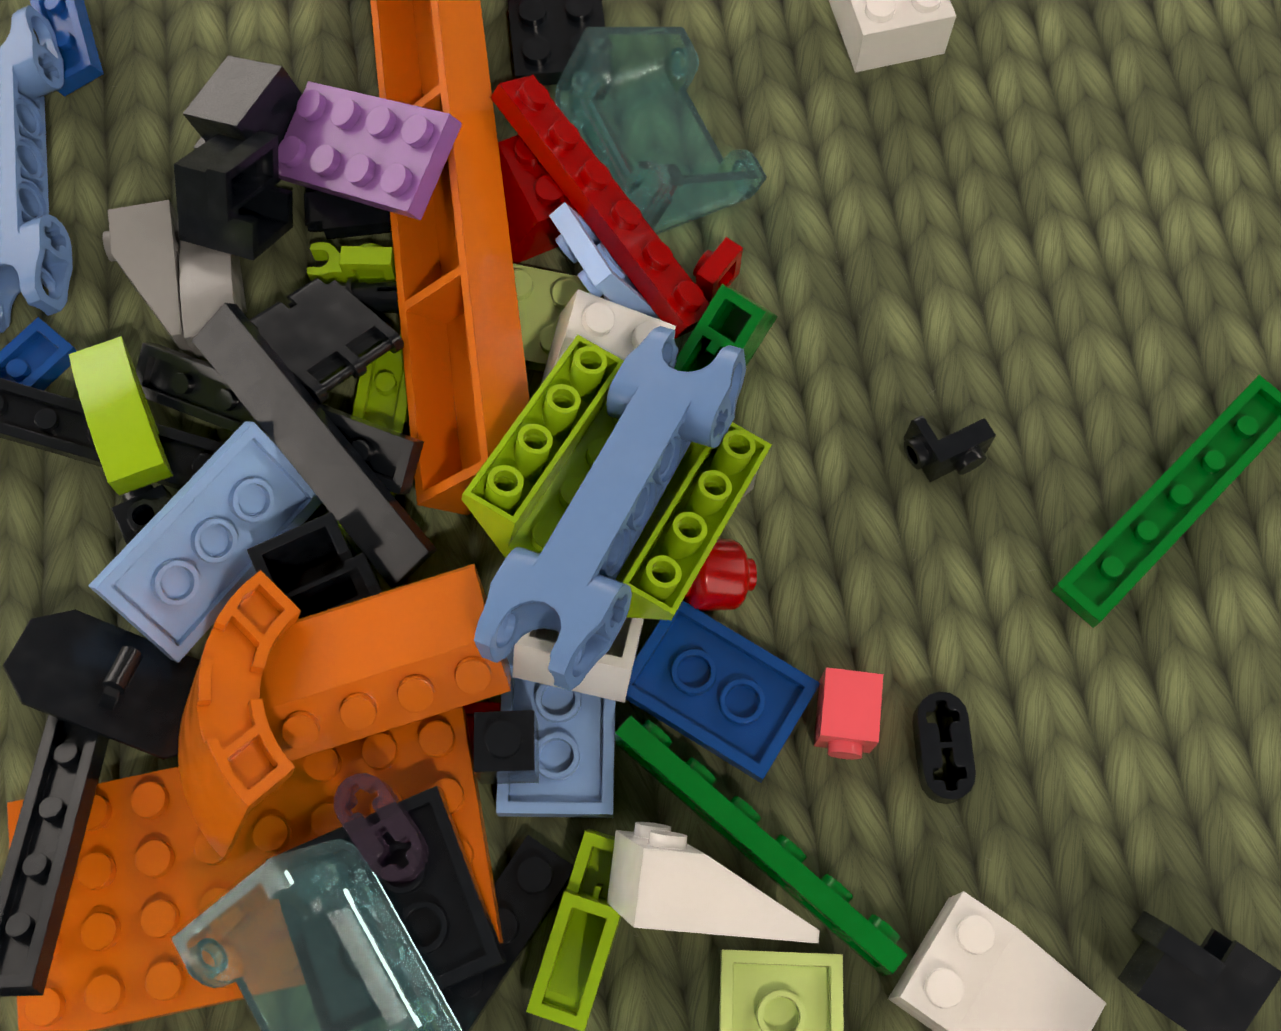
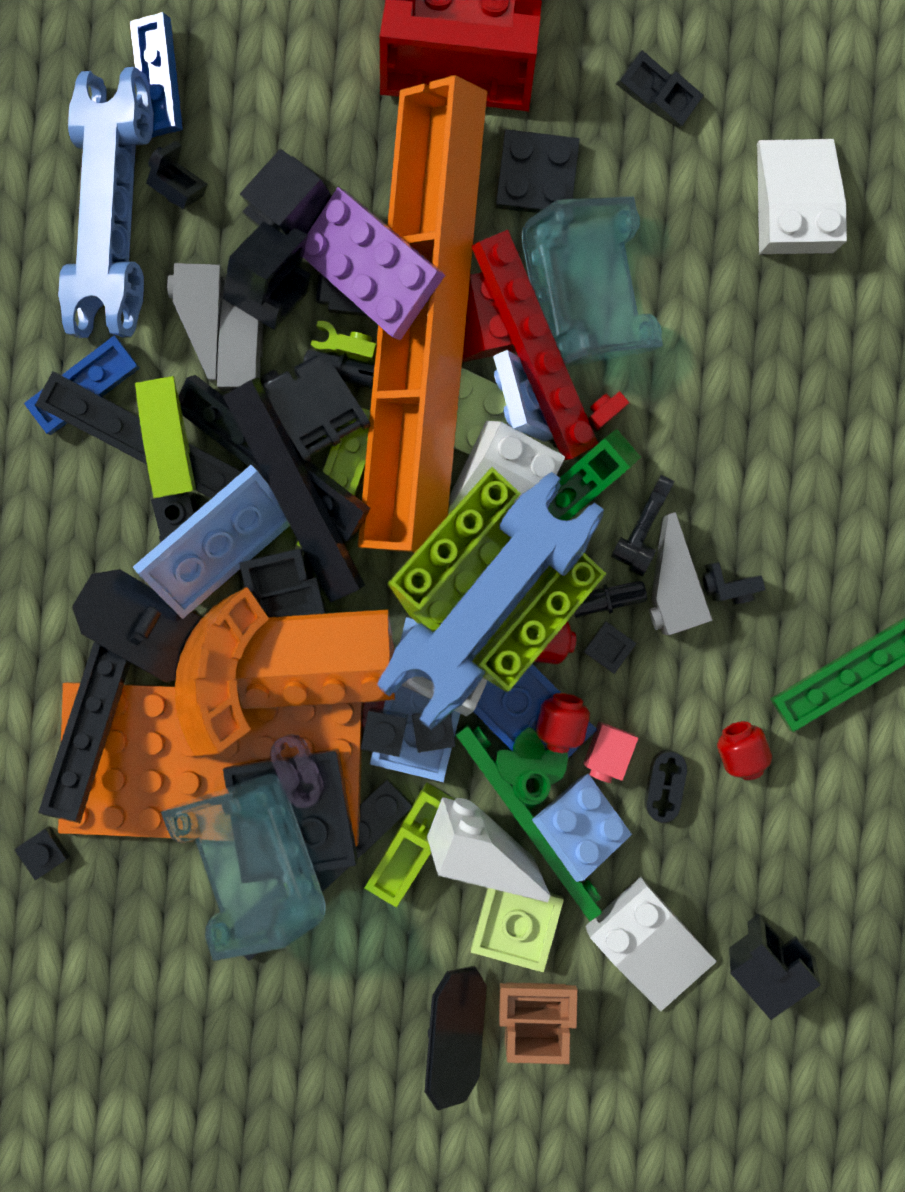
camera: 15 degrees right, 20 degrees up
(87, 123) = (172, 179): none -> black bracket
(580, 735) = (437, 738): none -> black plate
(733, 748) = (533, 762): none -> green plate
(767, 675) = (563, 722): none -> red head
(784, 505) = (612, 597): none -> black axle
(801, 436) = (633, 551): none -> black brick
(805, 568) = (609, 647): none -> black plate
(839, 833) = (582, 827): none -> light blue plate
(876, 471) = (676, 588): none -> light grey slope
(1040, 665) = (744, 750): none -> red head

